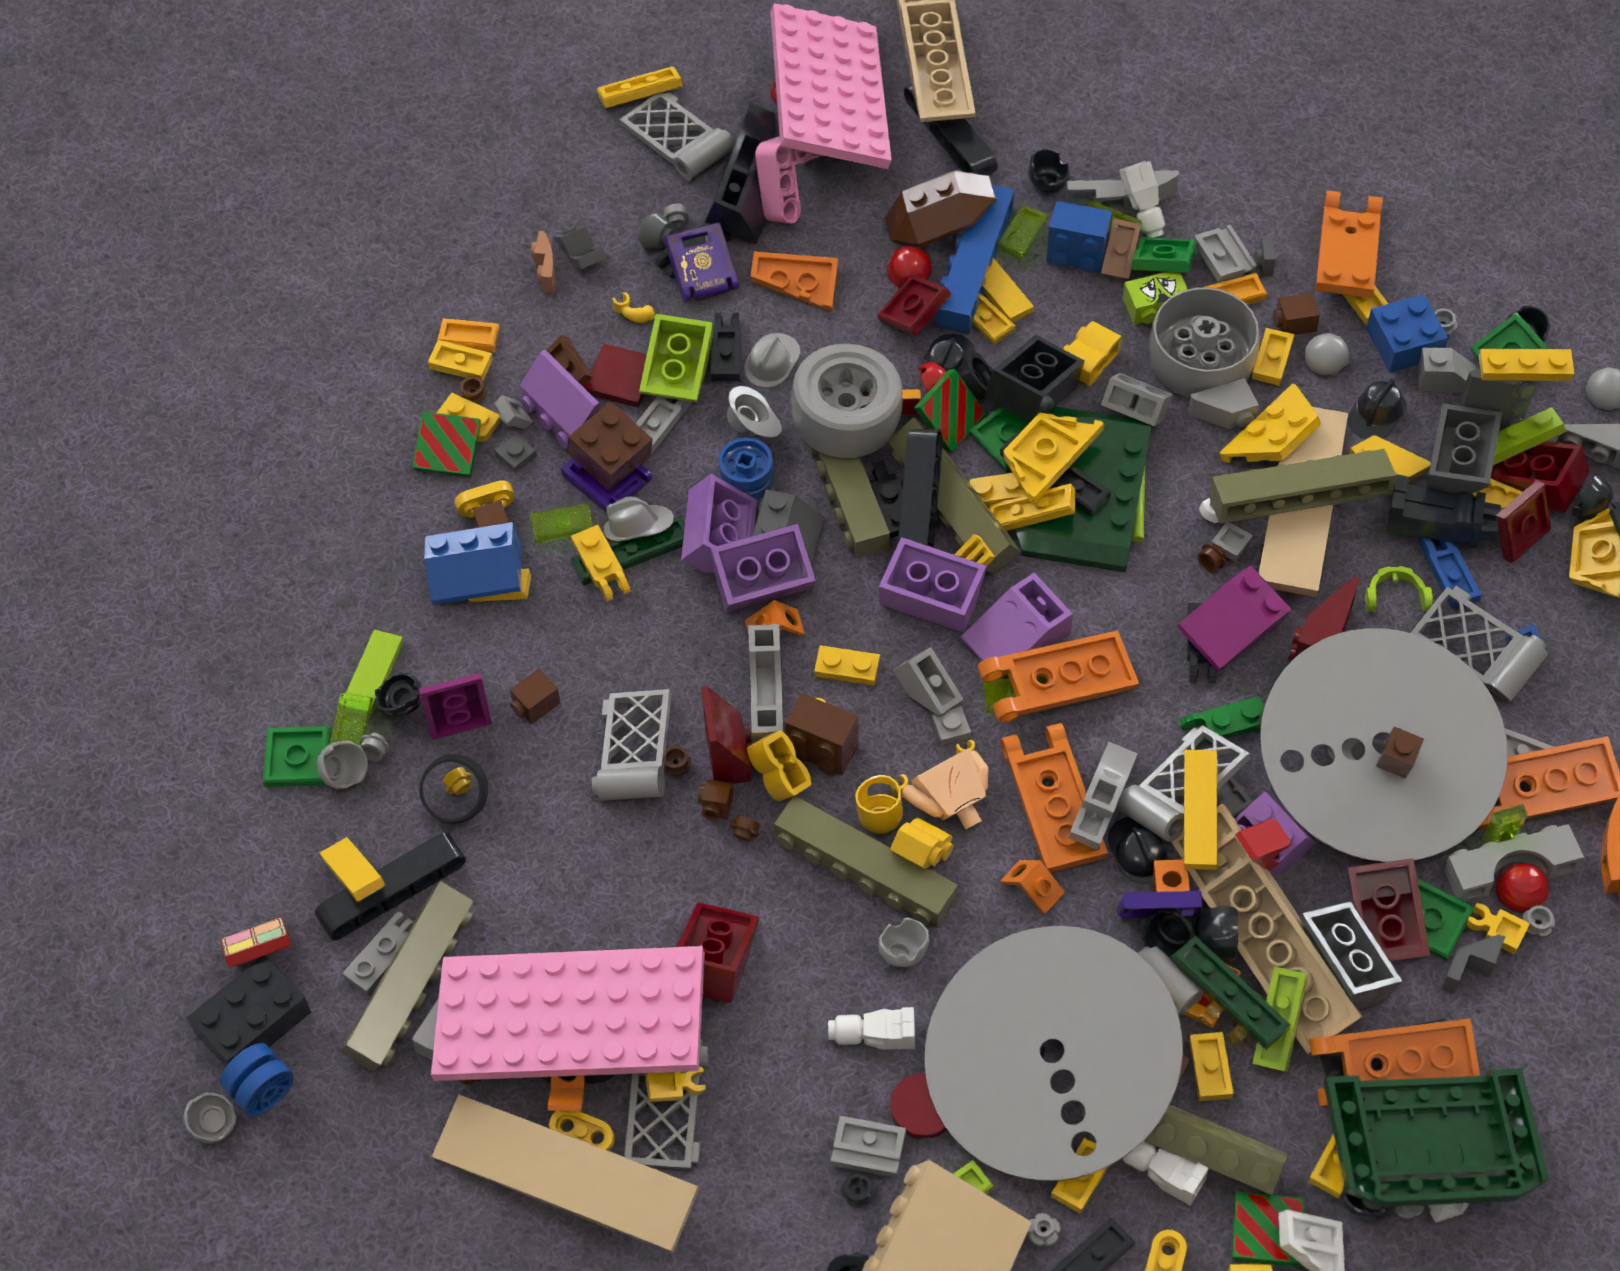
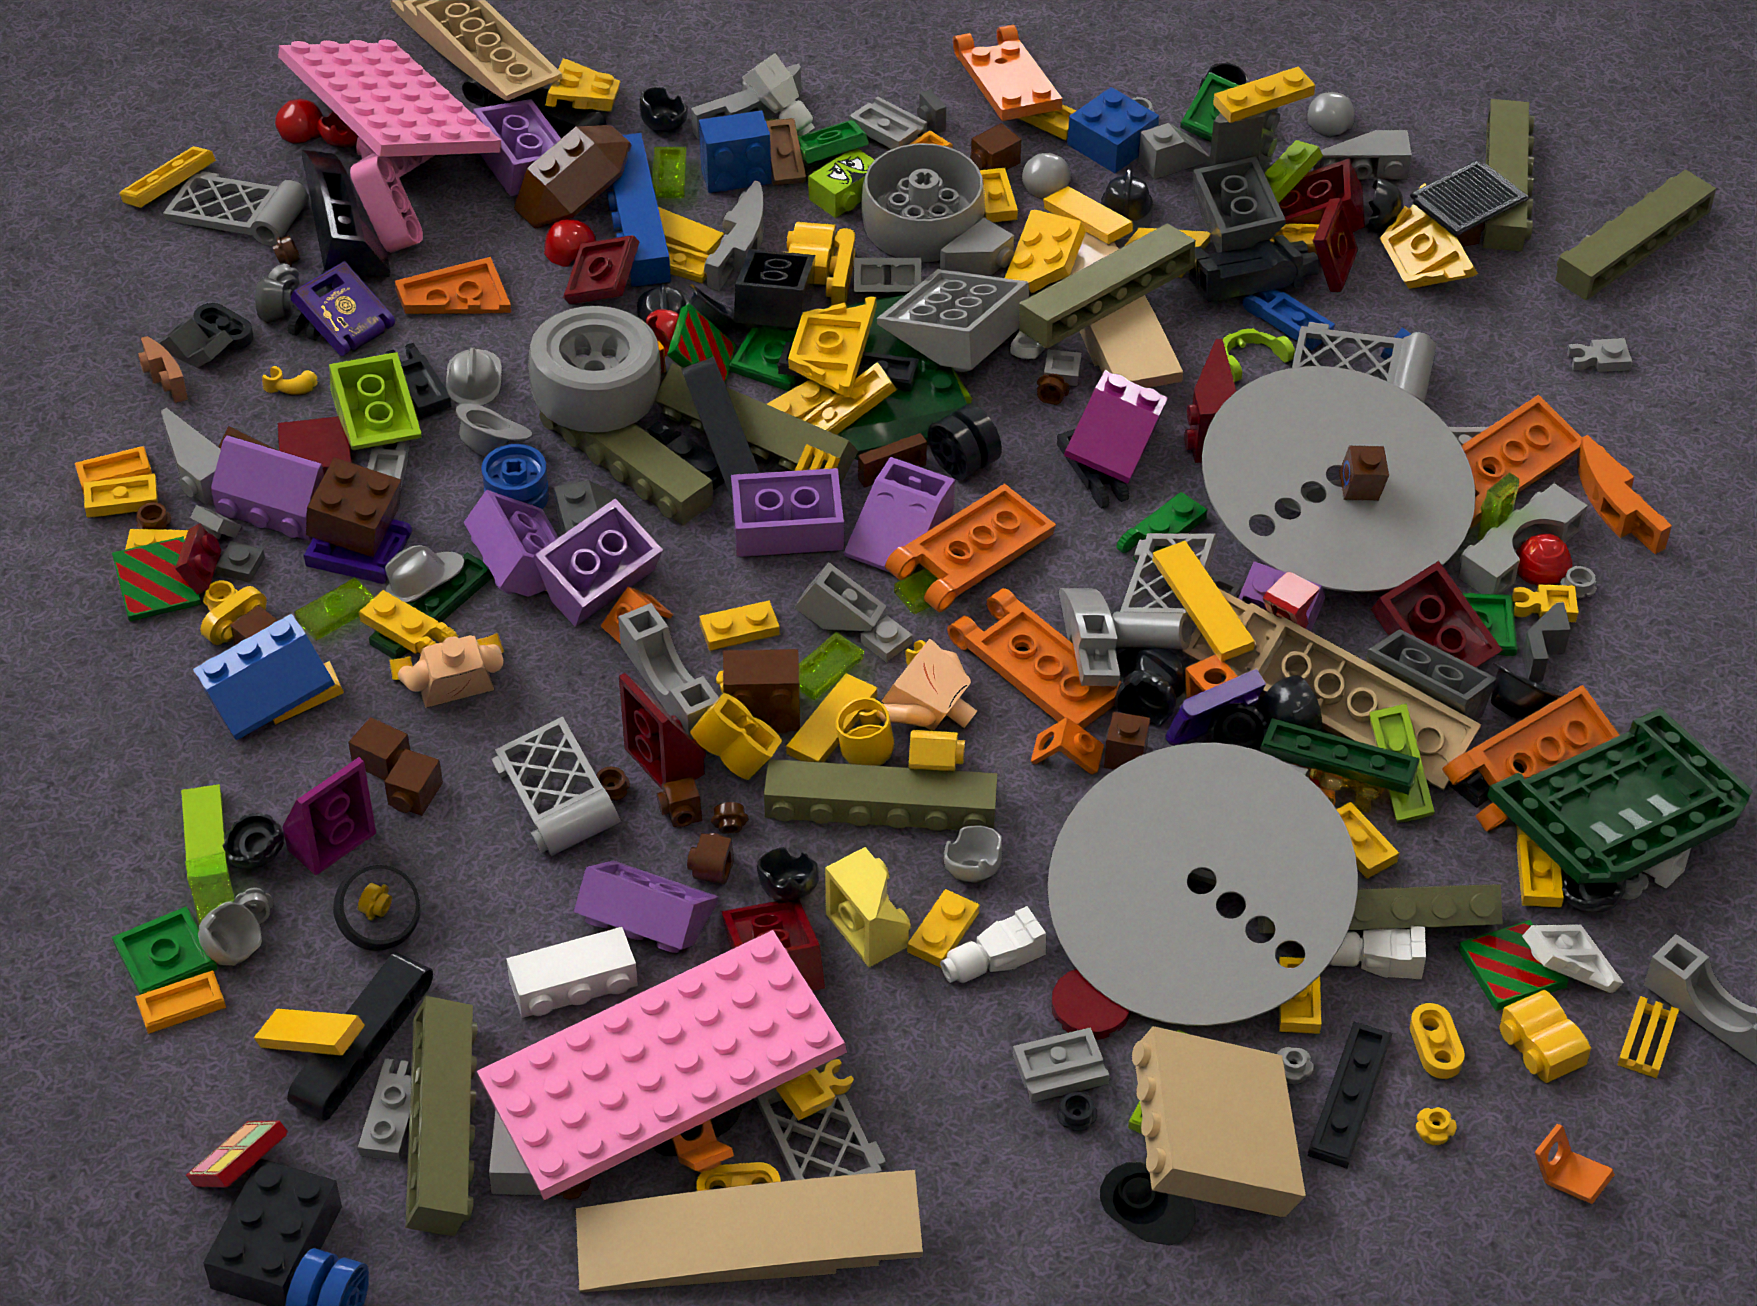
camera: 30 degrees left, 10 degrees down
(287, 800) = (180, 1002): none -> light orange tile
(482, 441) = (198, 558): none -> dark red plate
(484, 472) = (218, 593): none -> yellow plate
(523, 346) = (193, 456): none -> light grey slope
(525, 656) = (378, 747): none -> reddish brown brick
(560, 905) = (572, 972): none -> white brick
(611, 242) = (224, 319): none -> black plate
(612, 615) = (451, 668): none -> light nougat torso
(643, 872) = (644, 905): none -> medium lavender slope
(691, 190) = (286, 250): none -> reddish brown plate
(711, 857) = (711, 858): none -> reddish brown plate
(756, 896) = (787, 876): none -> black hair
(760, 73) = (298, 121): none -> red hair
(795, 943) = (861, 907): none -> light yellow slope
(841, 790) = (819, 733): none -> yellow tile
(850, 991) = (943, 927): none -> yellow plate
(890, 730) = (827, 665): none -> clear neon green plate
(916, 156) = (523, 137): none -> medium lavender slope
(995, 127) = (583, 87): none -> yellow wing
(1050, 311) = (742, 232): none -> light grey slope
(1050, 570) = (909, 449): none -> reddish brown plate
(1077, 901) = (1126, 739): none -> reddish brown brick
(1094, 392) = (841, 266): none -> yellow hinge
(1106, 580) = (964, 441): none -> black wheel
(1113, 870) = (1146, 695): none -> black hair
(1164, 463) = (957, 316): none -> light grey slope
(1337, 406) = (1095, 217): none -> yellow tile
(1424, 998) = (1519, 695): none -> black piece

